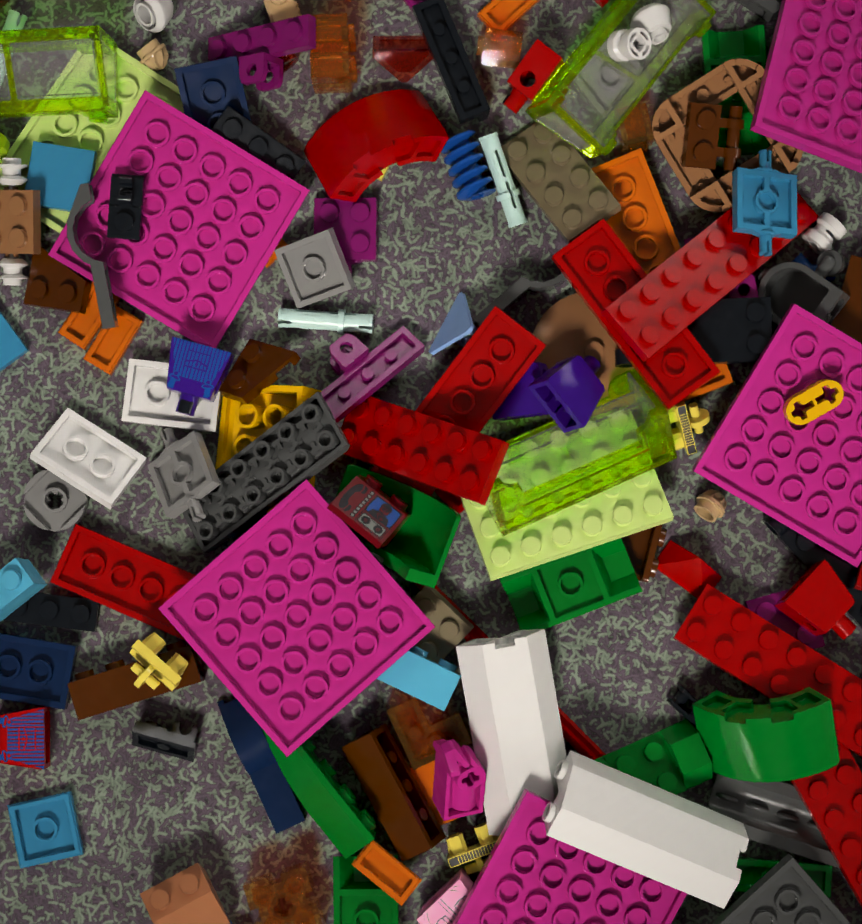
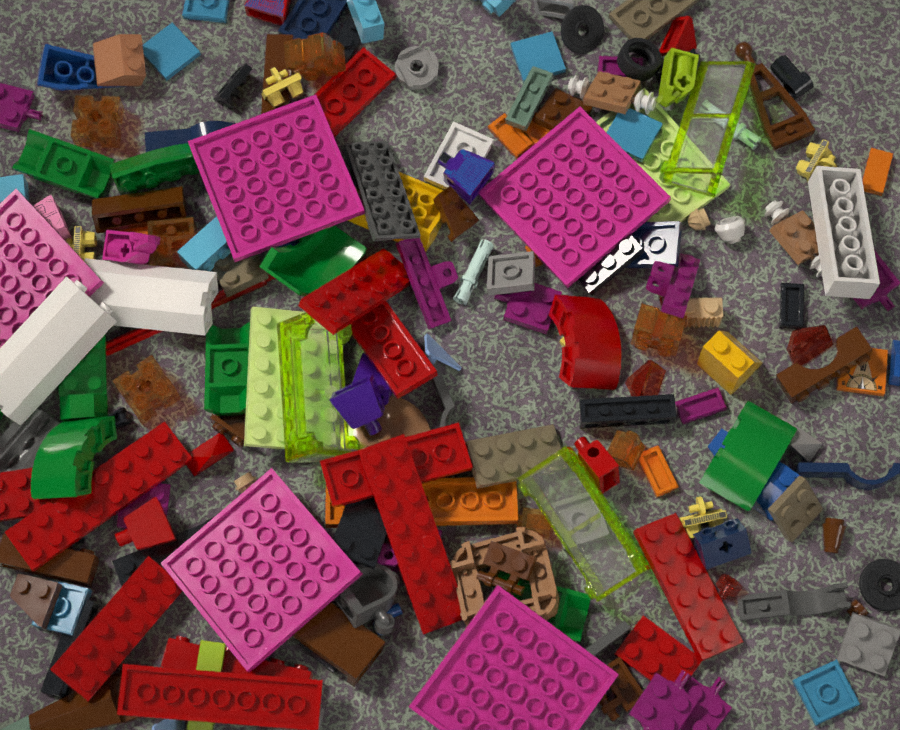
camera: 110 degrees right, 15 degrees down
(54, 329) = (529, 98): none -> sand green plate
(84, 199) = (557, 131): dark grey piece -> none
(88, 458) = (435, 93): white plate -> none
(95, 637) = (314, 56): none -> clear orange brick
(125, 207) = (594, 162): black plate -> none
(142, 849) = (169, 51): none -> dark azure tile
(183, 474) = (401, 145): light grey plate -> none
(370, 510) = (327, 244): dark red slope -> none
(386, 872) = (89, 186): orange tile -> none
(466, 168) = (547, 397): blue piece -> none
(503, 180) = (501, 421): light aqua pin -> none
(629, 44) = (597, 526): white wheel -> none
(655, 20) = (605, 555): white cone -> none
(657, 677) = (141, 402): none -> clear orange brick
(685, 422) = (307, 482): light yellow hips -> none
(764, 203) = (443, 586): dark azure plate -> none
(817, 408) = (280, 562): yellow beam -> none
(824, 233) = (409, 632): white wheel -> none

